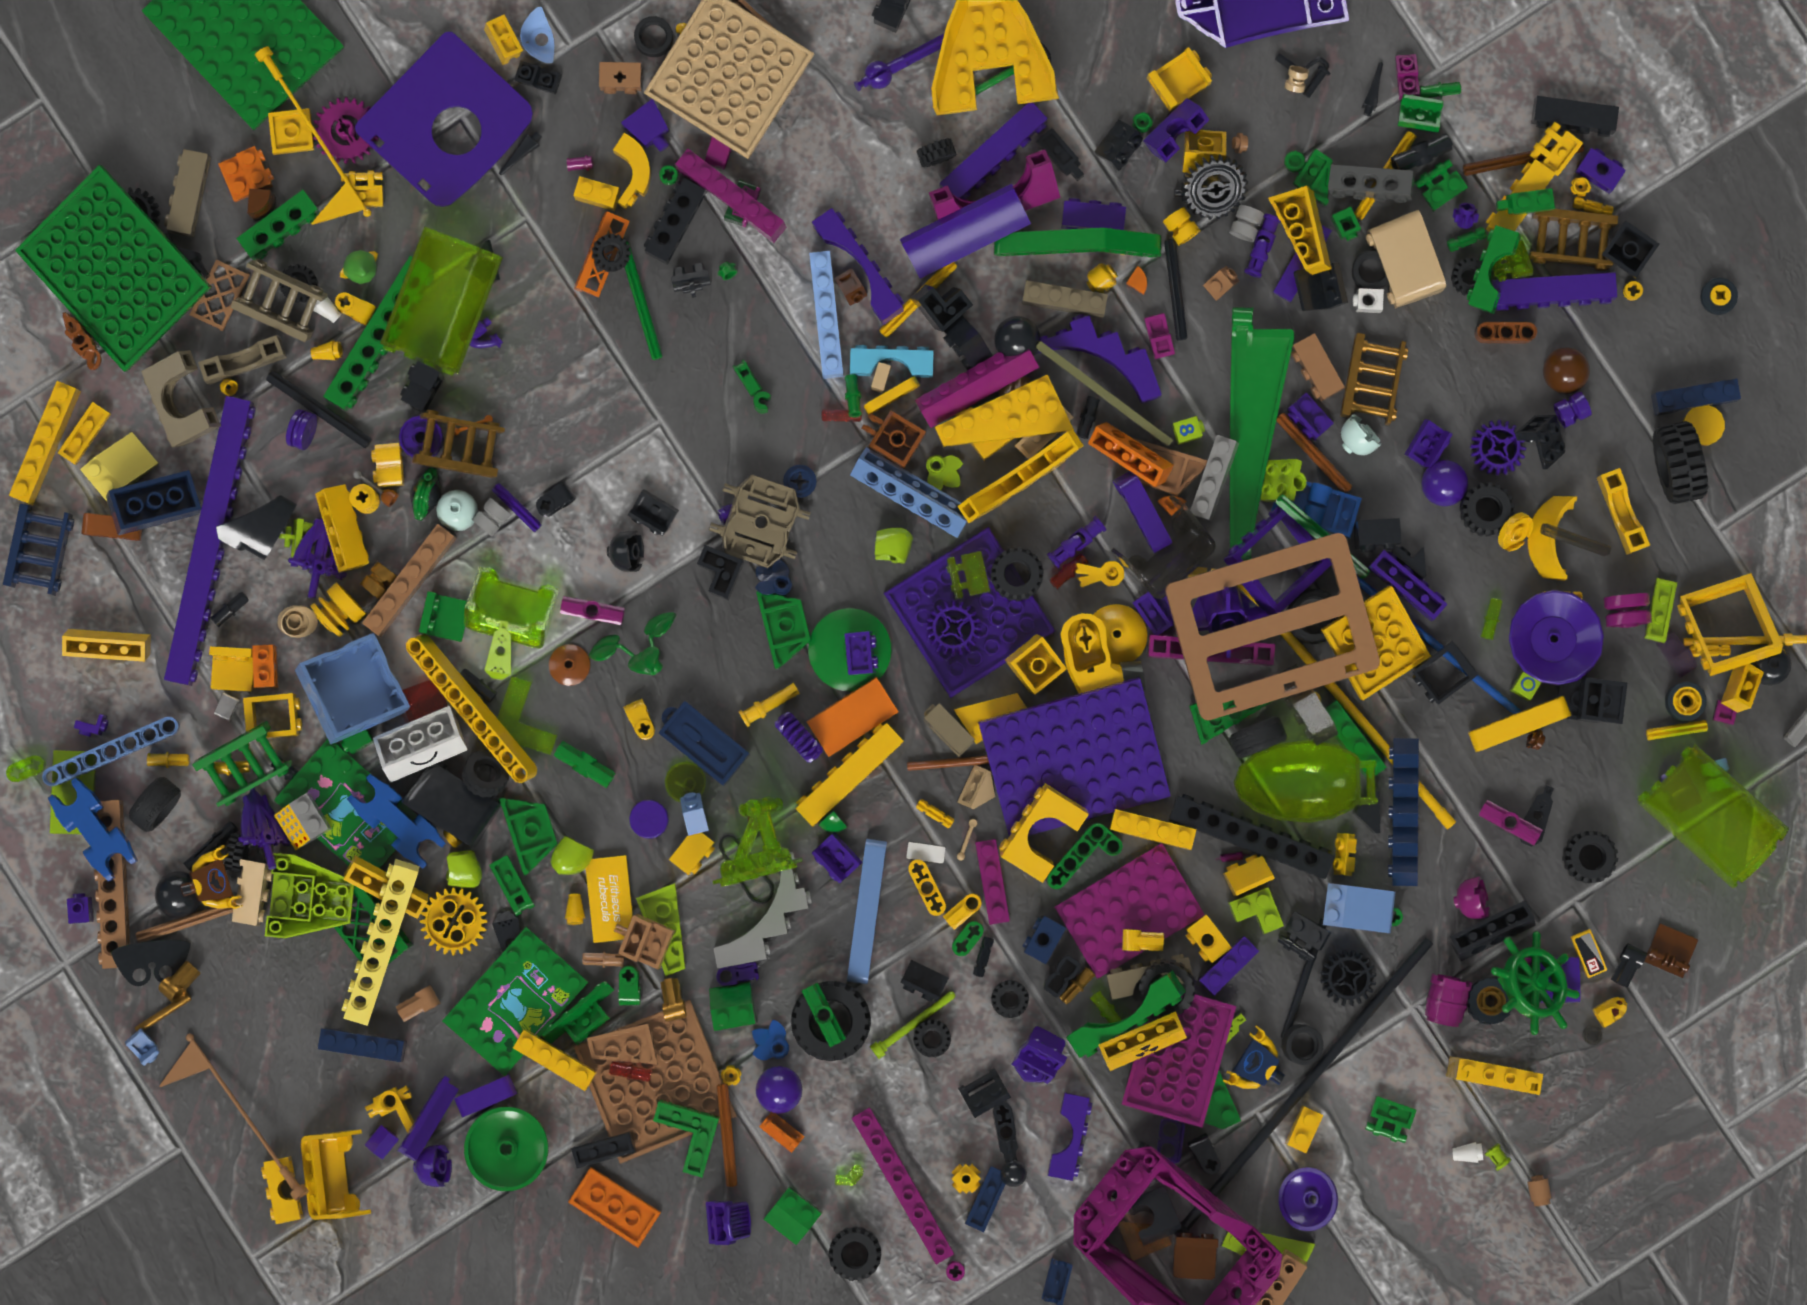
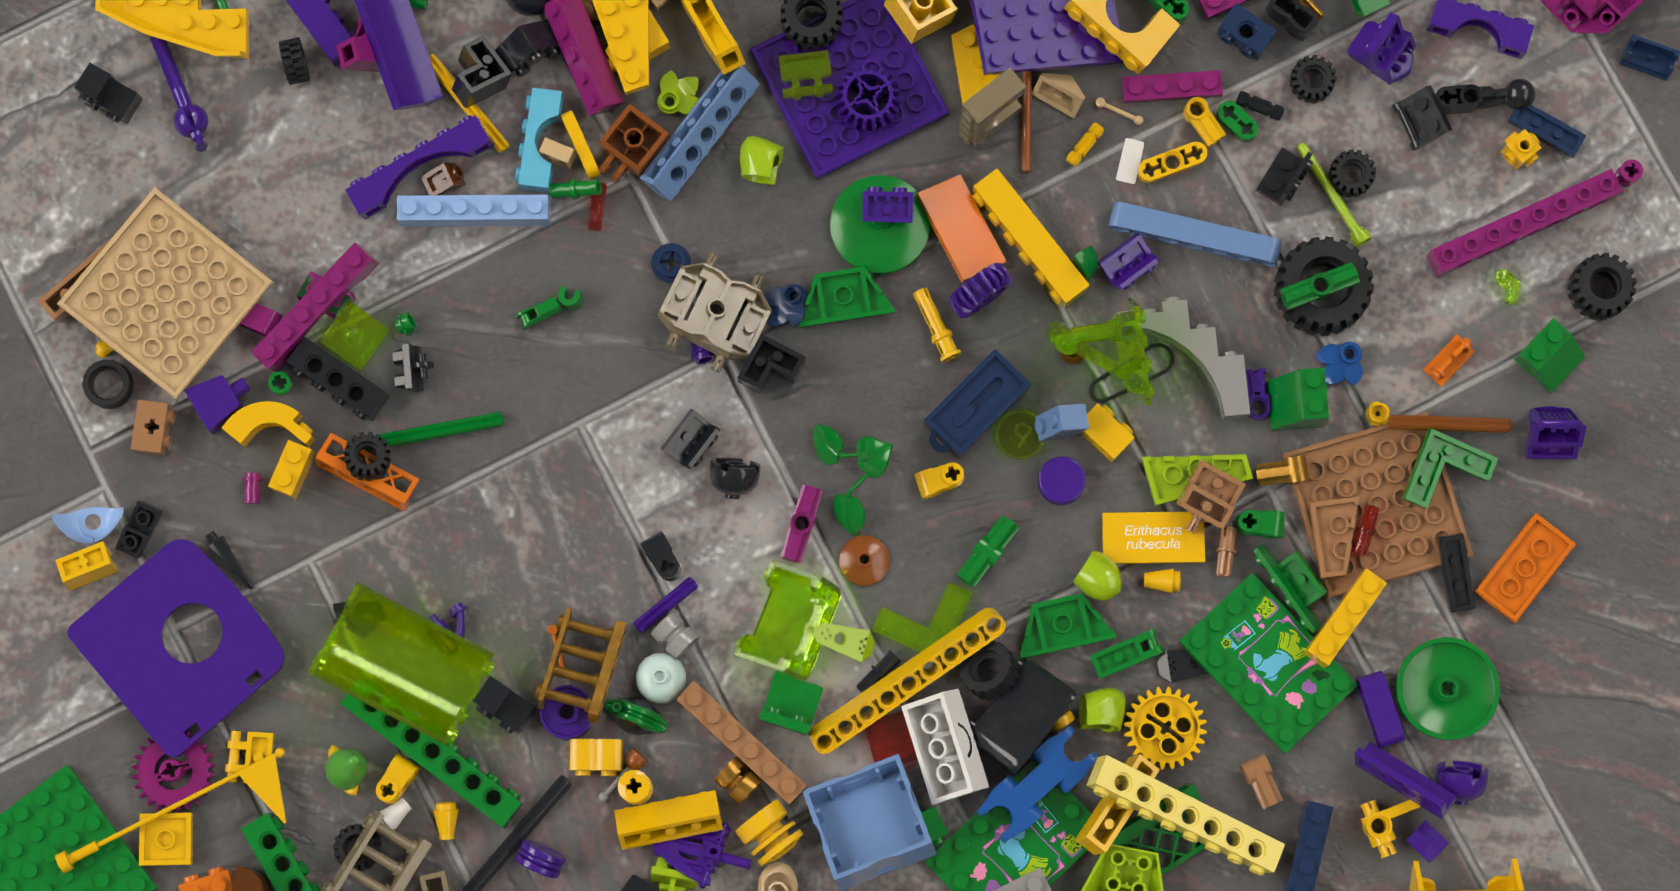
camera: 85 degrees left, 5 degrees down
(711, 230) = (354, 335): none -> clear neon green plate
(779, 1089) = (1401, 354): dark purple piece -> none

